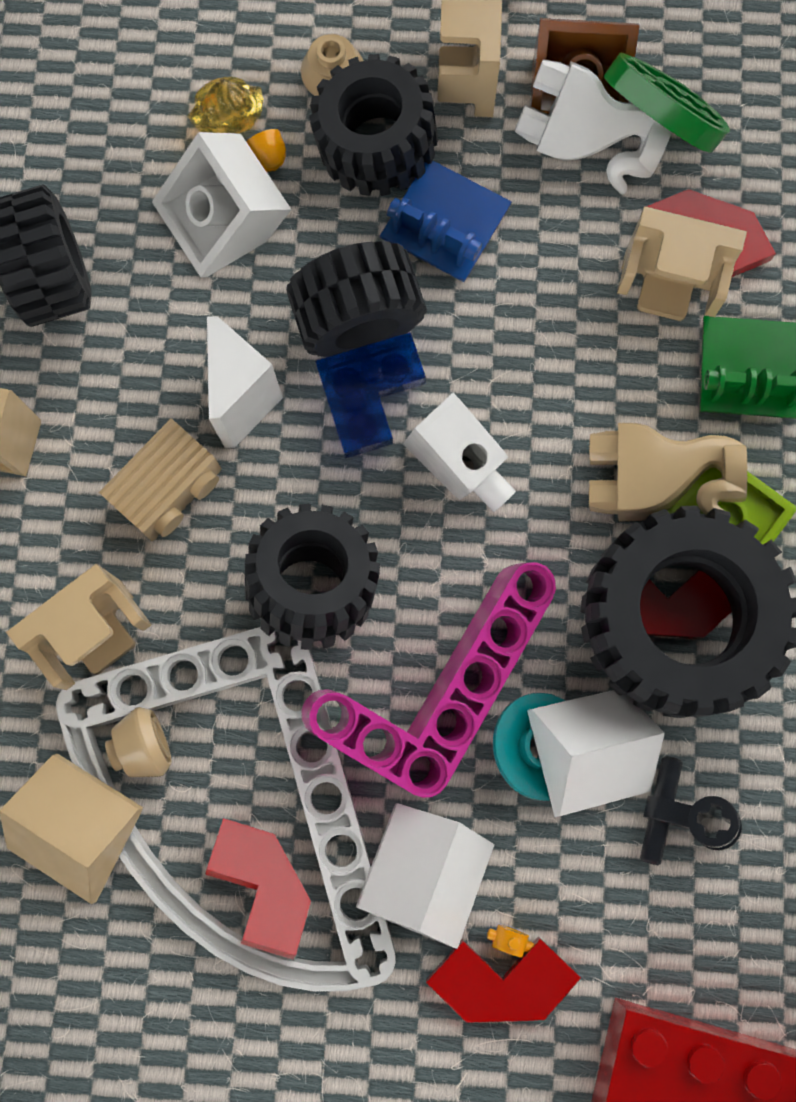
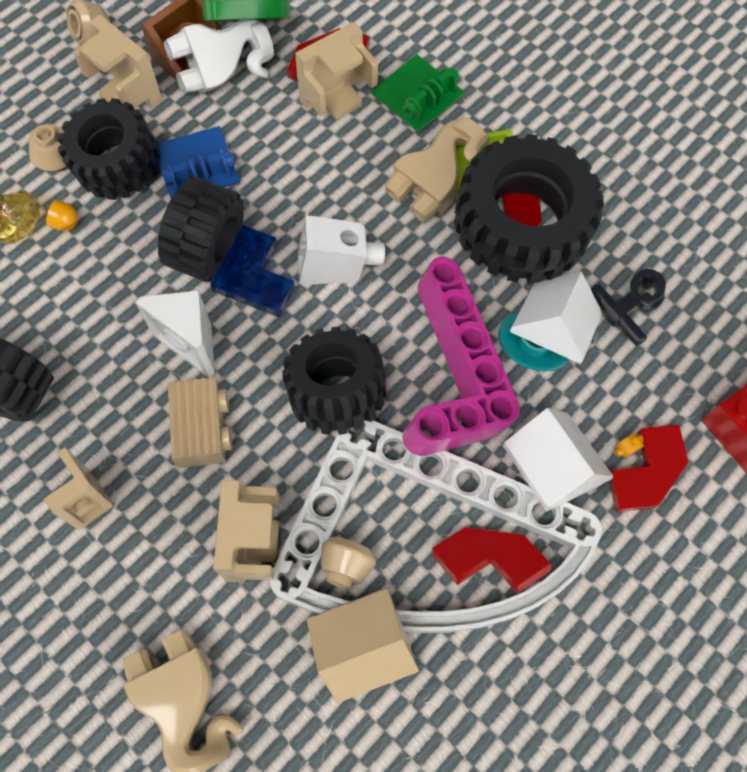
camera: 55 degrees left, 10 degrees down
(219, 201) = (65, 262): white slope -> none

